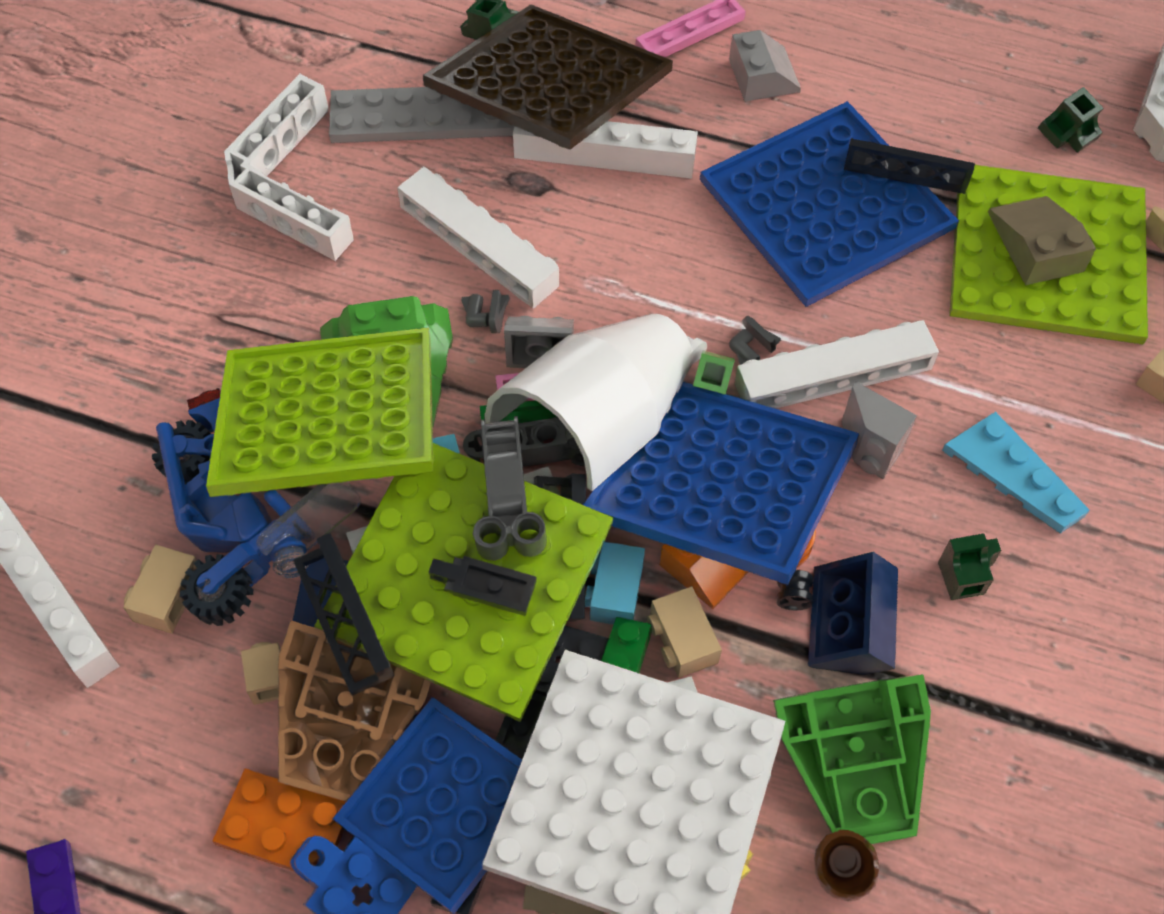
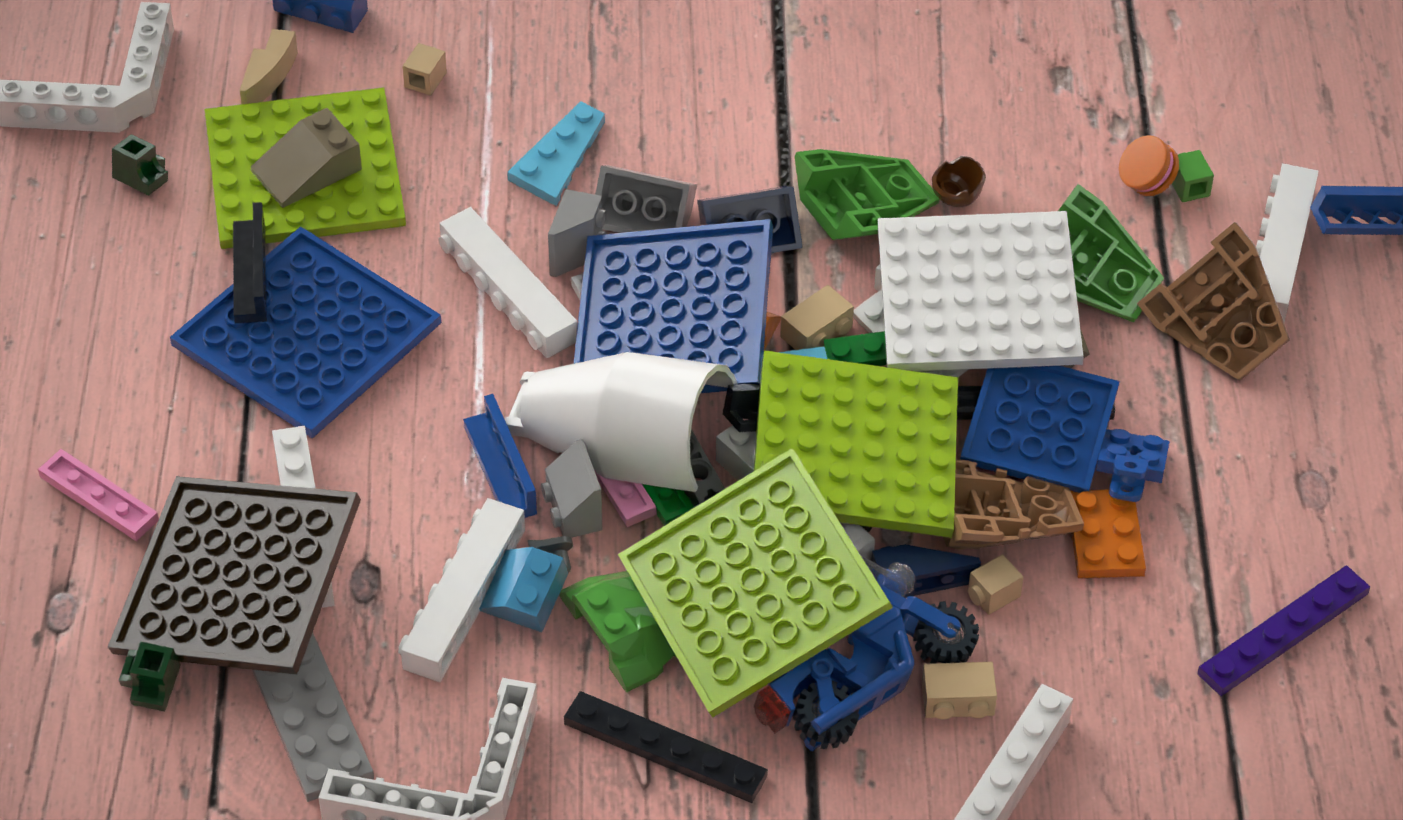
camera: 110 degrees left, 10 degrees down
(253, 331) = (666, 746): none -> black plate
(355, 607) = (934, 485): black fence -> none
(450, 276) = (525, 587): none -> dark azure slope
(485, 583) = (869, 407): black hinge -> none
(506, 495) = (785, 408): dark grey piece -> none
(610, 304) = (501, 458): none -> blue fence
(714, 372) = (556, 351): bright green brick -> none
(753, 330) = (516, 352): dark grey piece -> none
(761, 66) = (141, 421): light grey slope -> none
(914, 518) = (643, 200): none -> light grey slope
(967, 565) = (672, 159): dark green brick -> none

